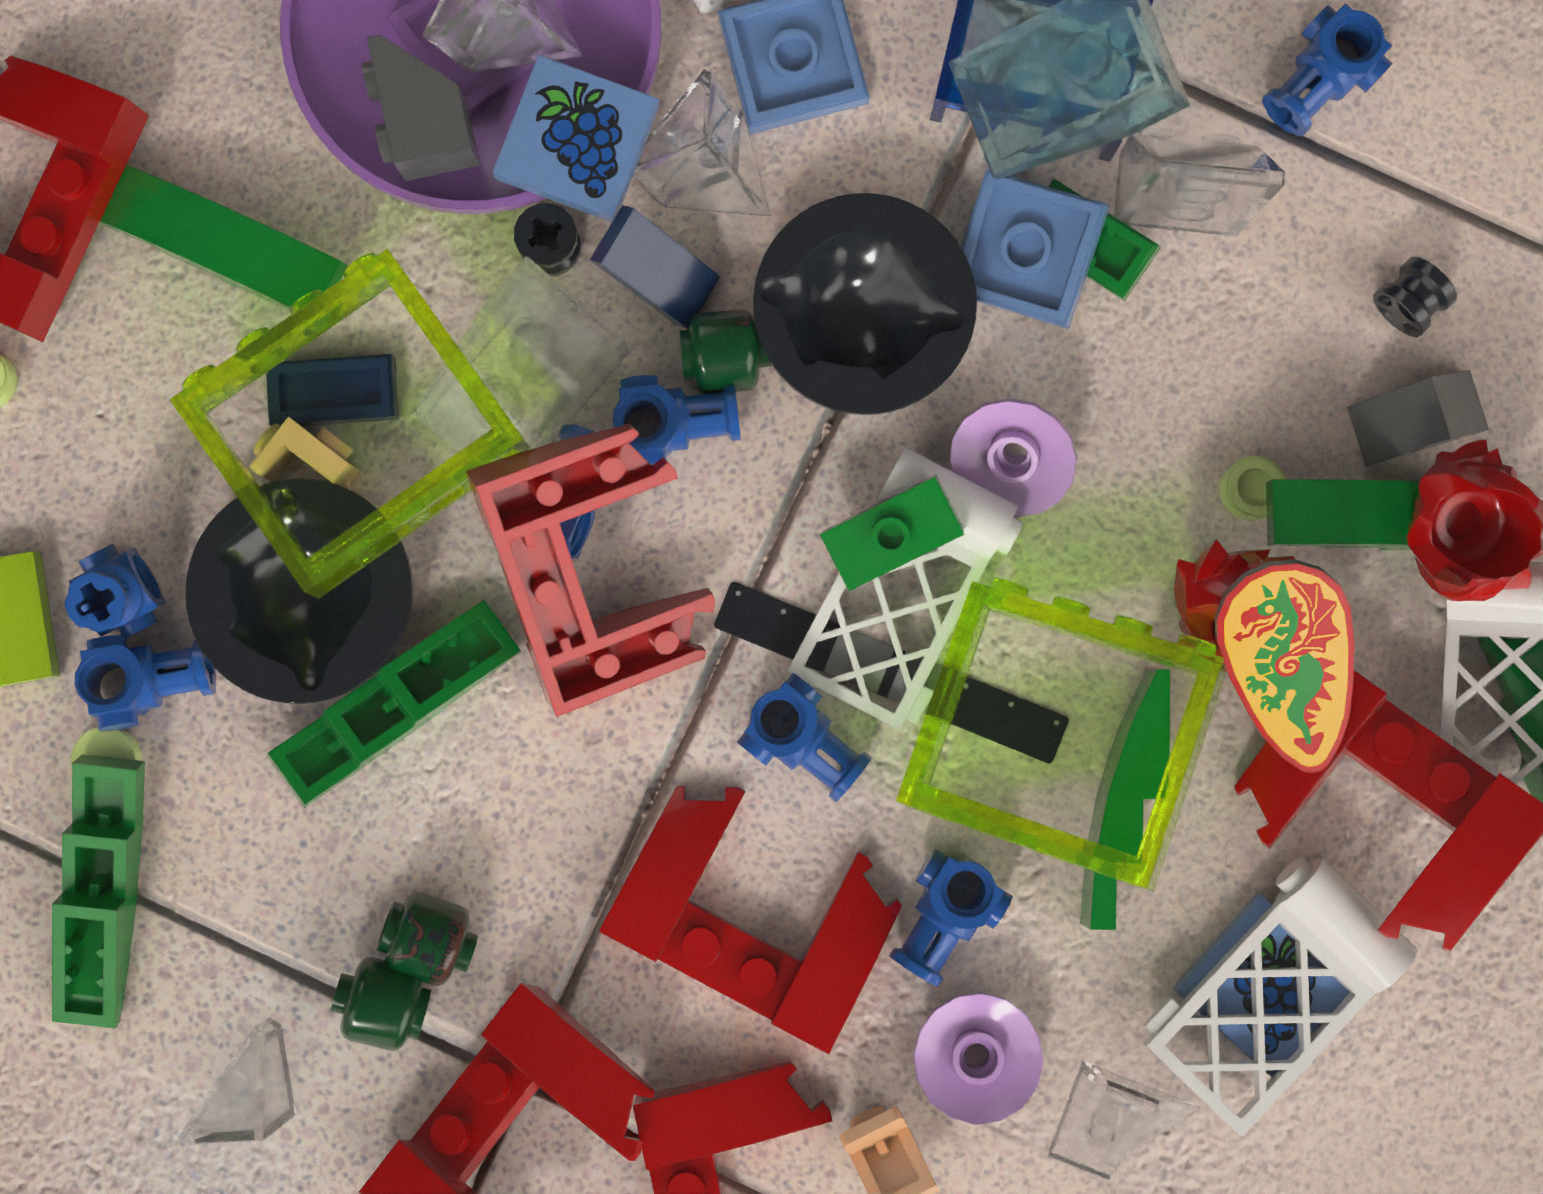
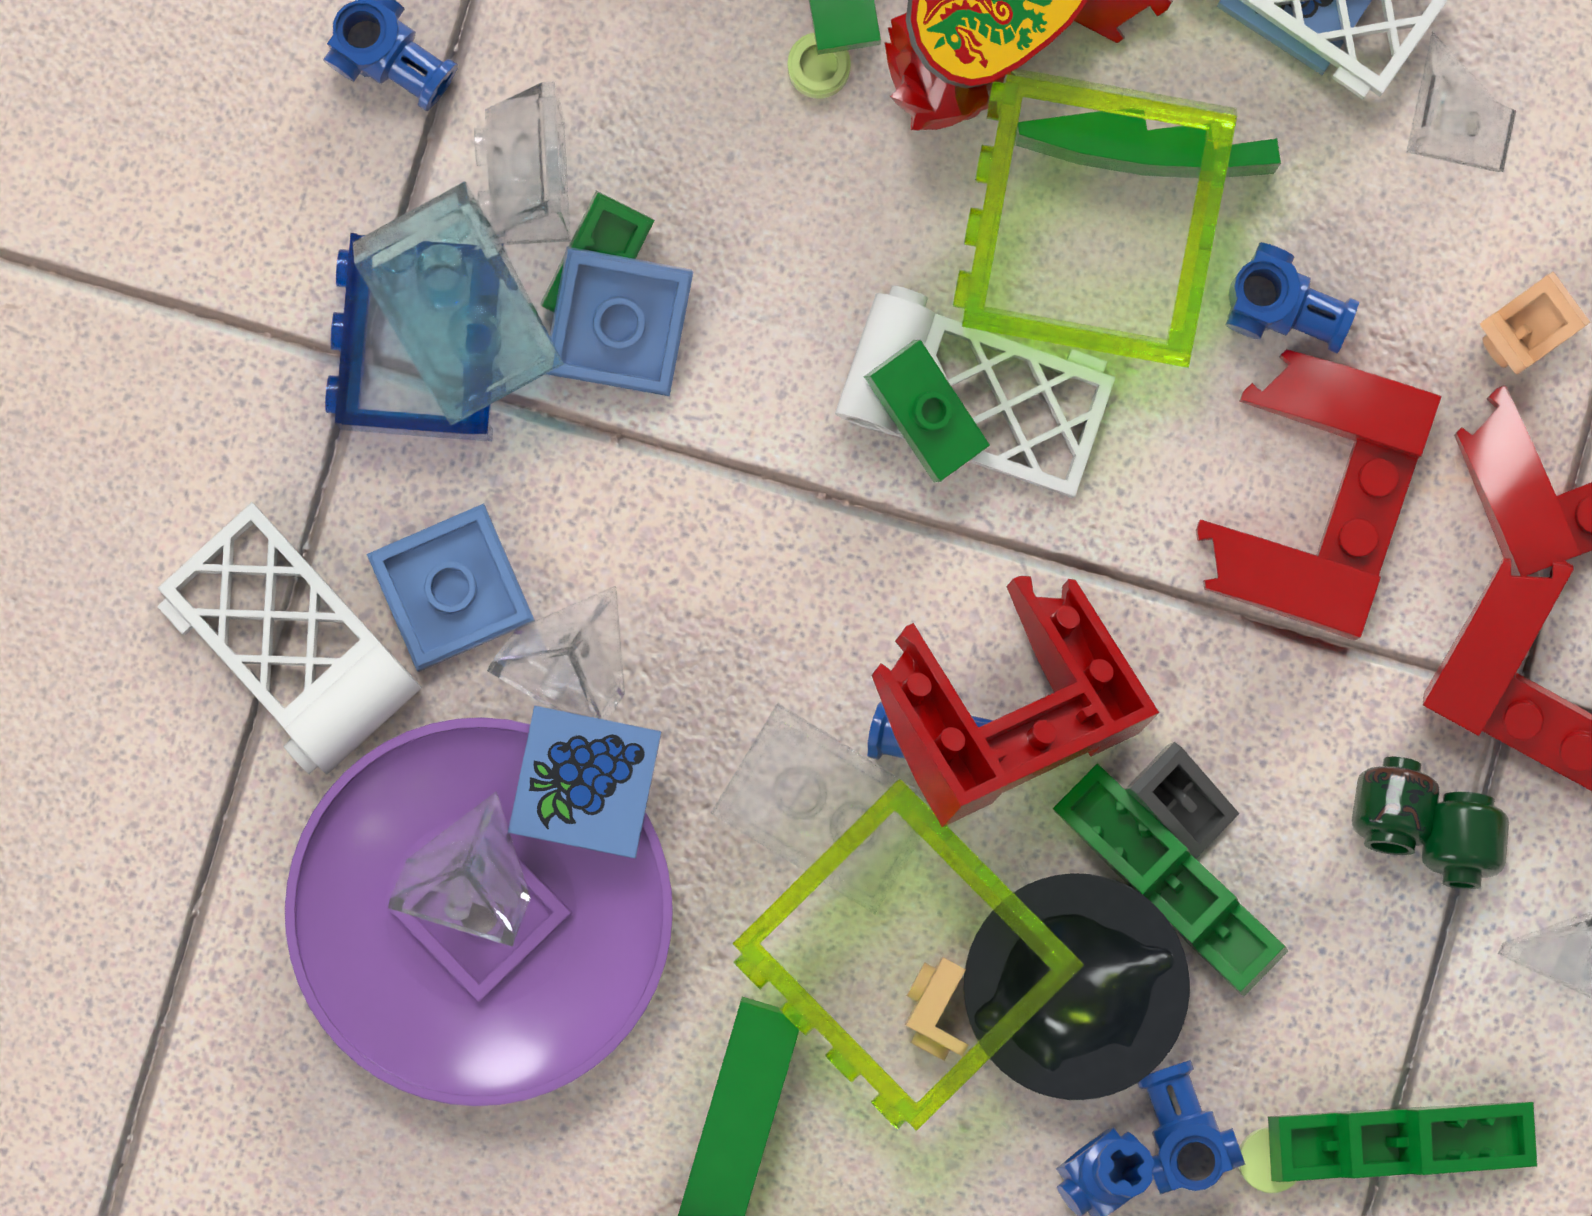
camera: 100 degrees left, 0 degrees up
(333, 390) = (866, 993): dark blue tile -> none
(423, 114) = (584, 935): dark grey slope -> none
(470, 726) = (1183, 799): none -> dark grey slope
(553, 251) = (686, 810): black wheel -> none
(654, 267) = (697, 686): tile -> none
(681, 415) = (839, 644): blue connector -> none
(722, 351) = (766, 607): dark green head -> none
(809, 736) = (1141, 467): blue connector -> none
(864, 304) = (702, 473): black piece -> none
(980, 708) = (1081, 300): black sticker -> none
(998, 1084) = (1439, 227): lavender dish -> none
(1027, 480) = (847, 289): lavender dish -> none

